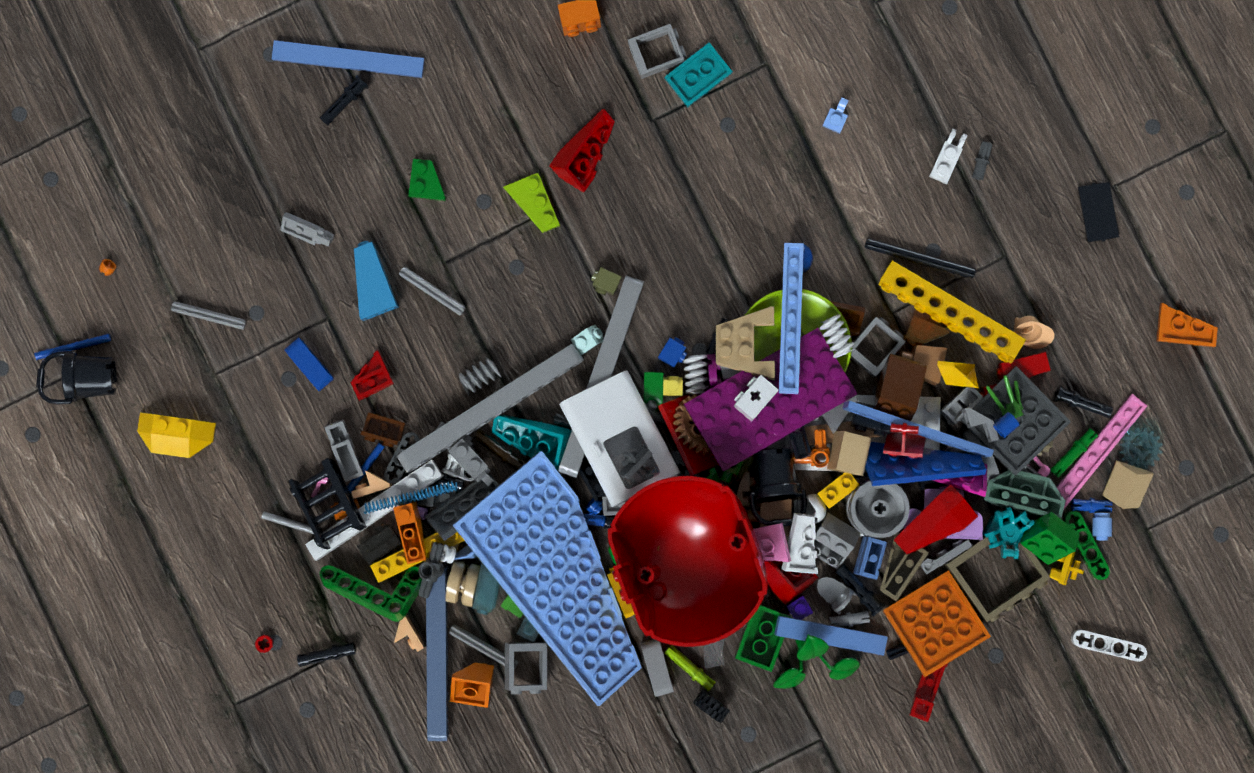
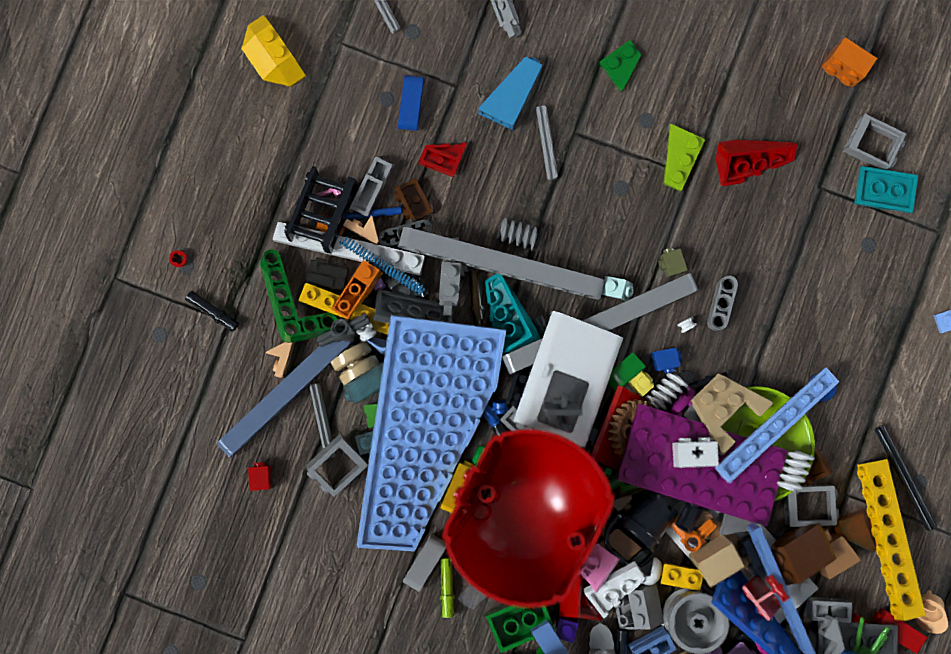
camera: 35 degrees right, 0 degrees up
(287, 522) = (281, 192): light grey bar -> none
(455, 469) = (433, 280): white piece -> none
(472, 685) = (287, 438): orange slope -> none
(481, 731) = (260, 477): none -> red brick
(657, 417) = (608, 394): dark grey arm -> none
(661, 313) = (687, 324): none -> white bush
(669, 263) = (728, 296): none -> light grey beam
(711, 706) = (433, 630): black tyre -> none
(958, 374) = (850, 587): yellow slope -> none

